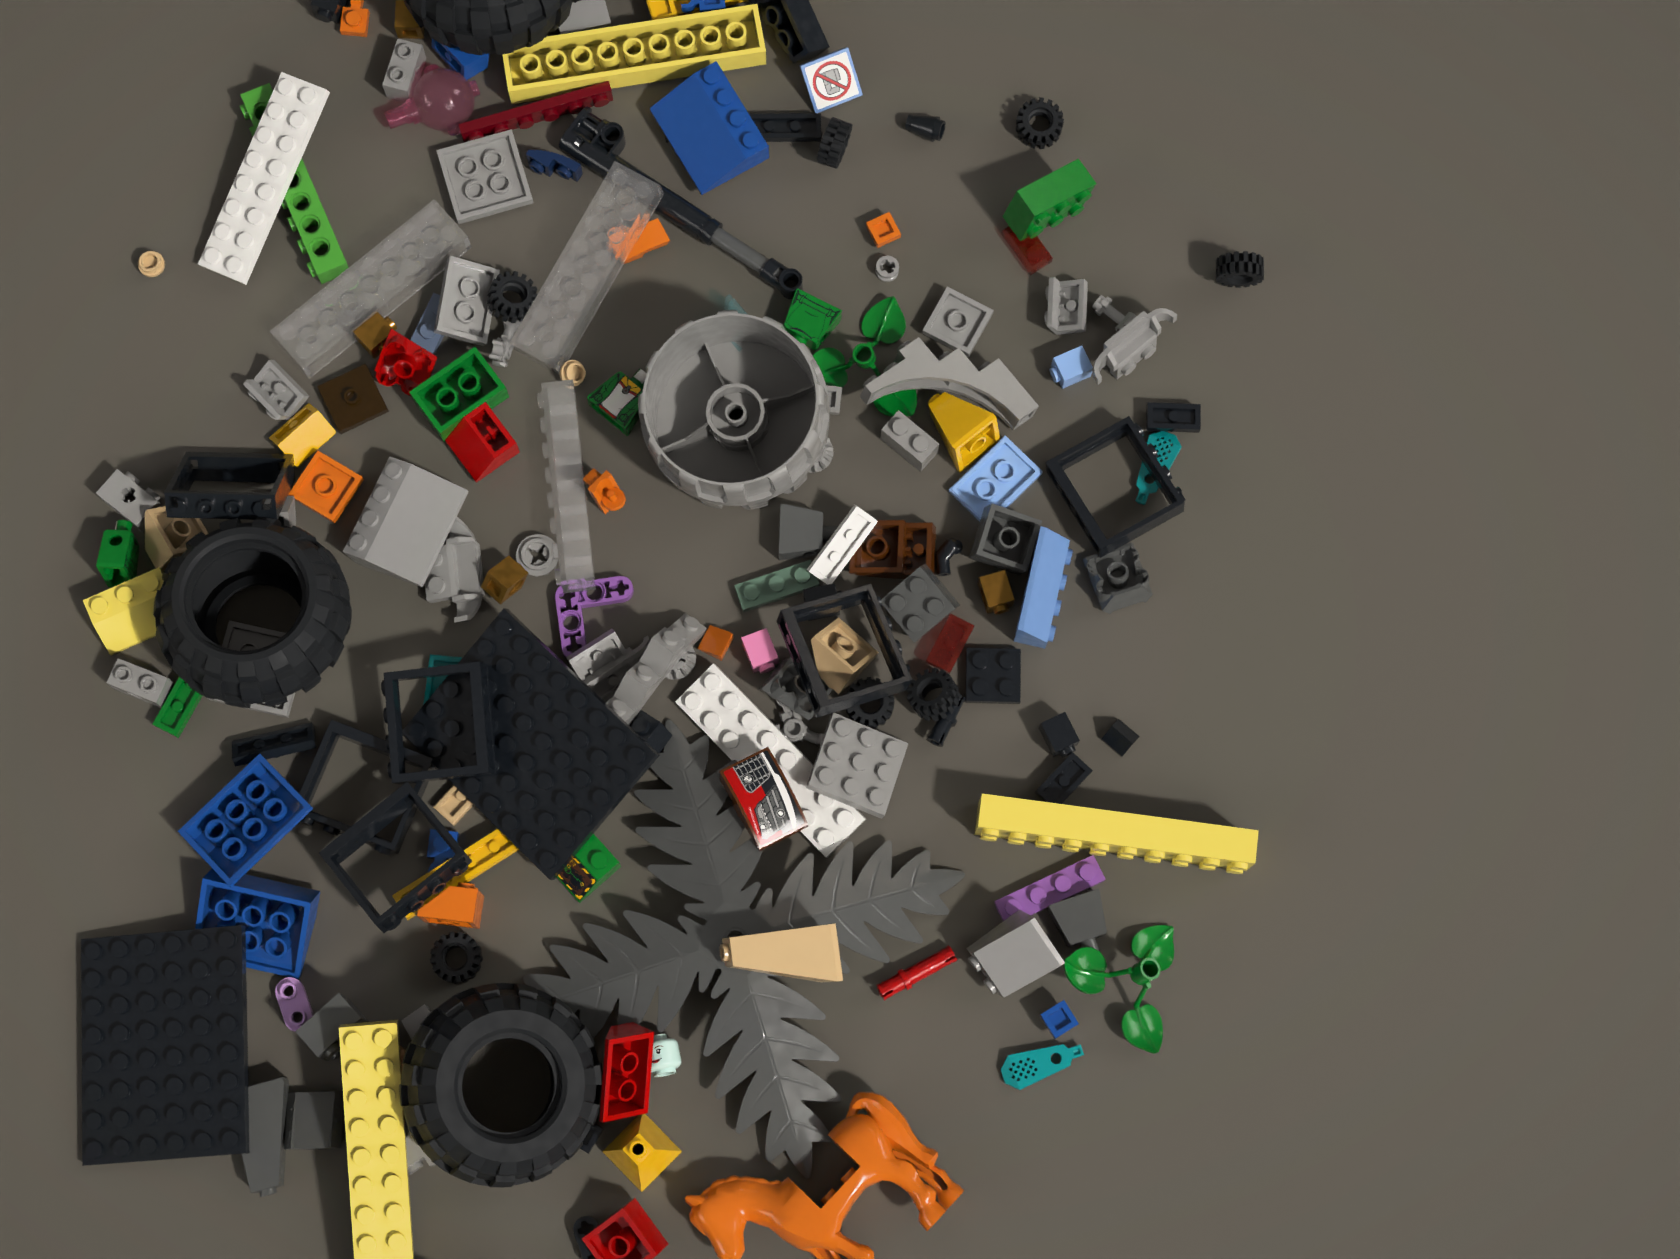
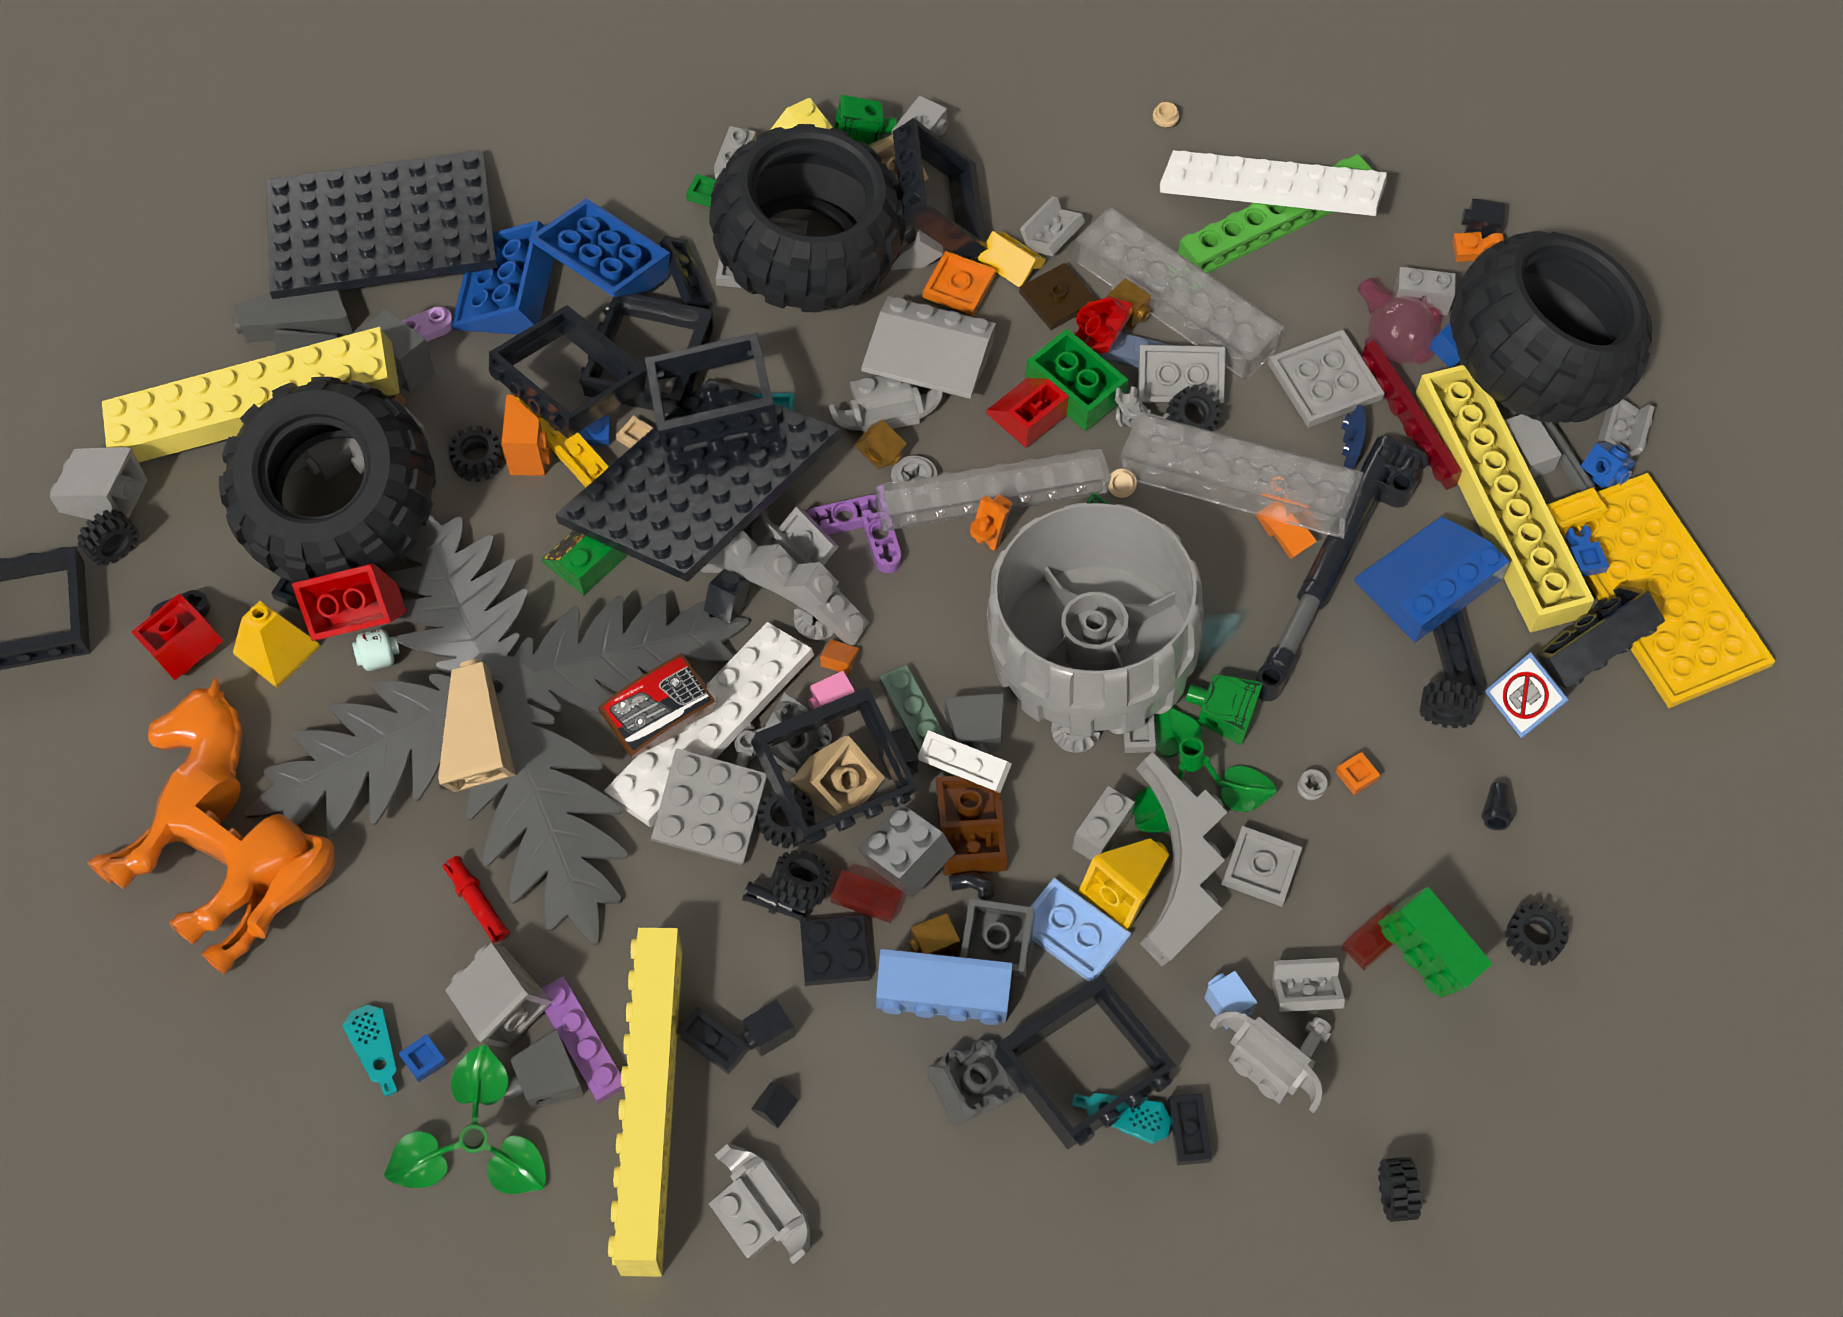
camera: 85 degrees right, 15 degrees down
(1206, 754) = (760, 1206): none -> light grey plate

